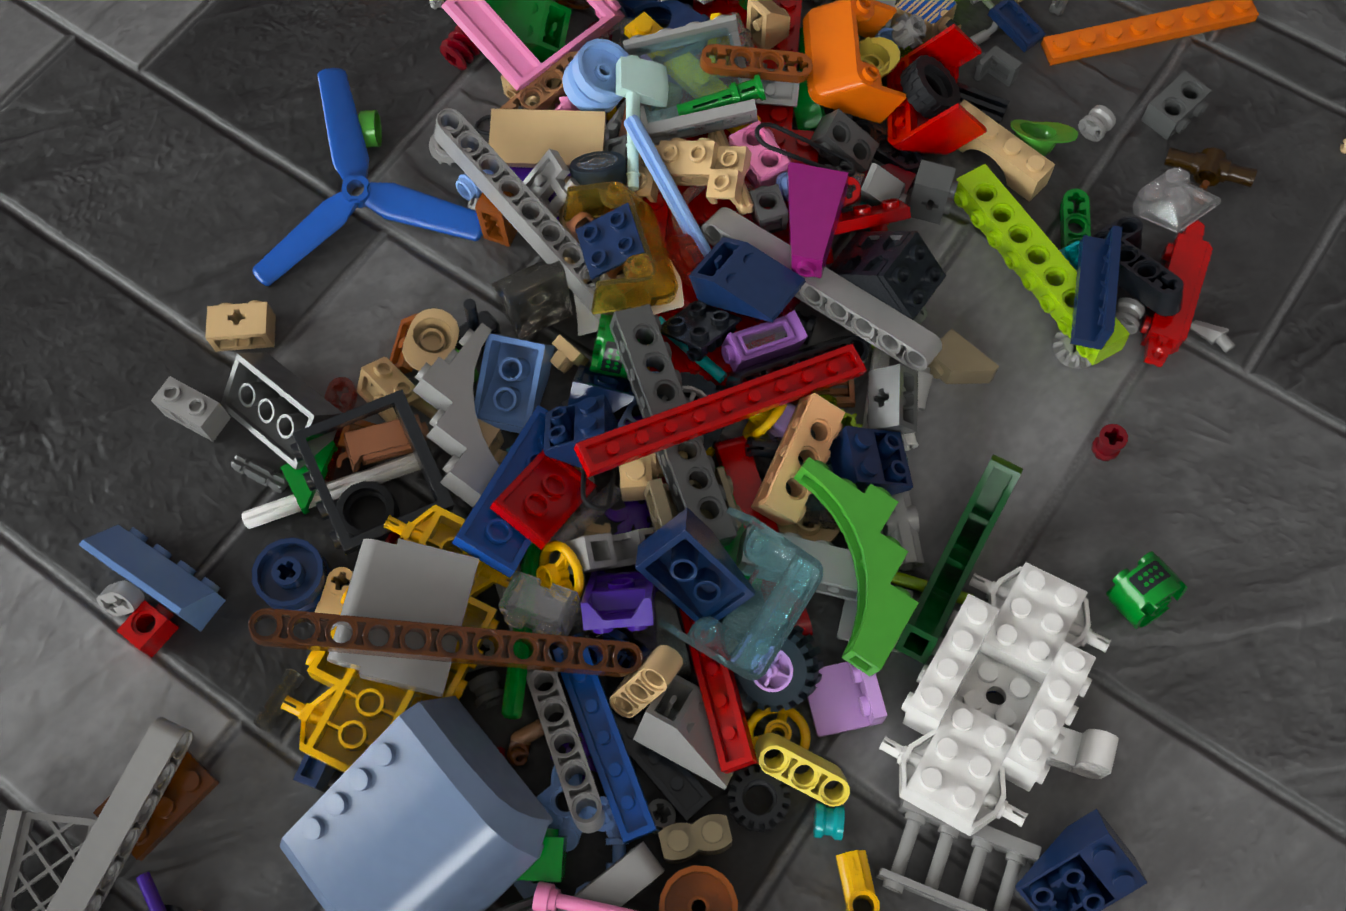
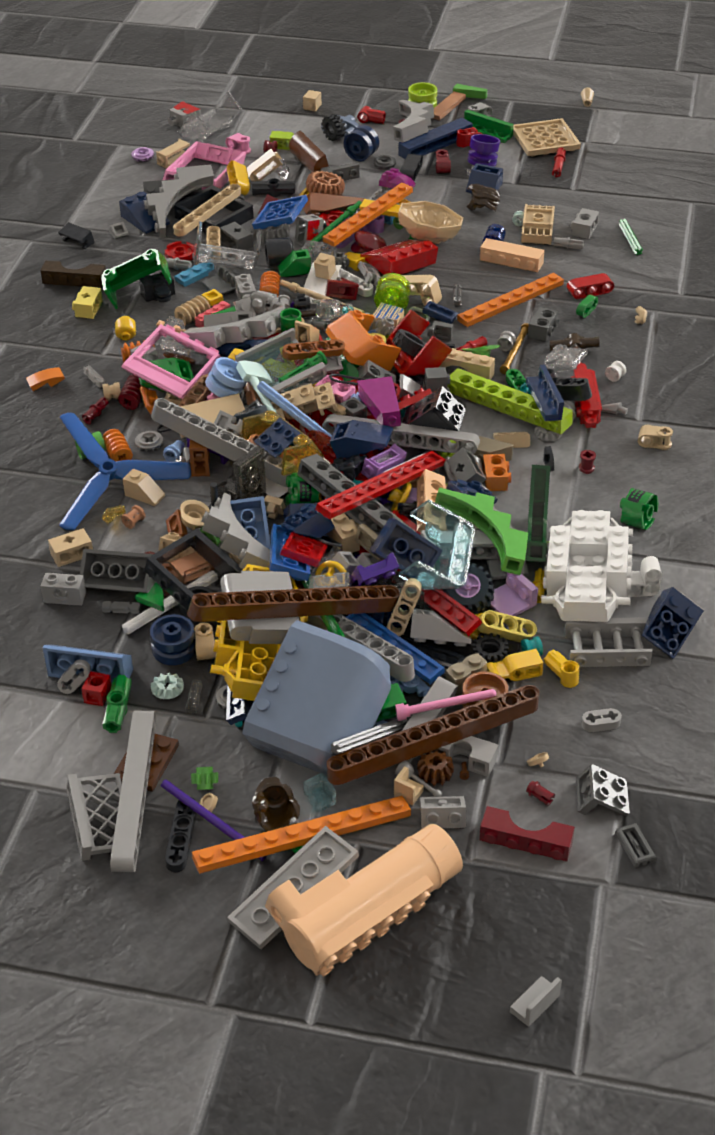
camera: 25 degrees left, 25 degrees down
(149, 690) = (117, 704): none -> green piece
(211, 882) = (204, 778): none -> bright green gear
(253, 674) = (173, 690): none -> light aqua gear
(333, 274) = (111, 513): none -> clear yellow arm
(356, 296) = (129, 516): none -> nougat bush
(394, 146) = (117, 445): none -> orange piece
(395, 243) = (142, 488): none -> tan slope
(402, 55) = (95, 410): none -> dark red axle
(438, 26) = (111, 391): none -> tan wheel
(481, 76) = (149, 397): none -> orange slope
(782, 852) = (518, 666): none -> yellow piece
(902, 686) = (538, 582): none -> yellow axle
(943, 409) = (496, 472): none -> orange brick
(1009, 341) = (518, 439): none -> tan slope
(1036, 113) = (482, 341): none -> red pin
(1048, 411) = (548, 457): none -> black tile
(1069, 180) = (506, 366): none -> pearl gold bar
(1252, 427) = (654, 437): none -> tan piece
(1253, 253) = (615, 371): none -> white wheel
(1271, 88) = (587, 306): none -> green beam
(1298, 44) = (590, 285): none -> red beam

